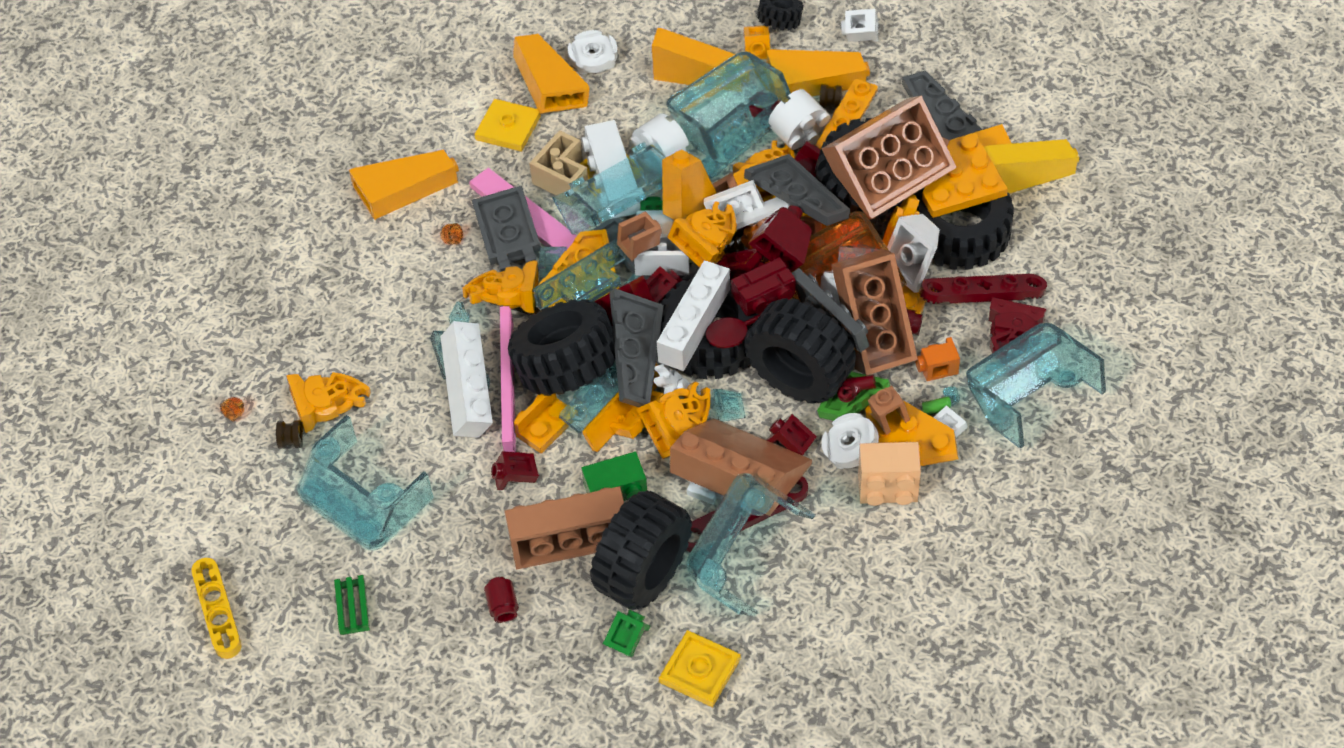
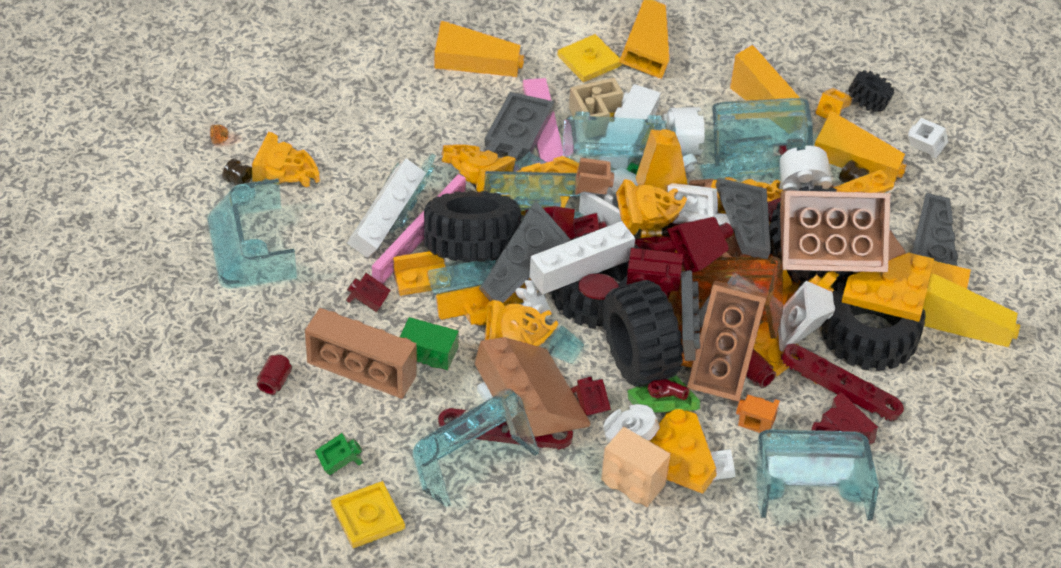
camera: 30 degrees right, 5 degrees down
(214, 608) = (80, 255): yellow beam -> none
(349, 584) = (173, 306): green tile -> none
(449, 230) = (480, 105): clear orange hinge -> none
(587, 62) = (688, 42): white plate -> none
(640, 550) = (390, 396): black tyre -> none
(885, 402) = (675, 412): nougat window -> none
(950, 399) = (742, 448): bright green arm -> none

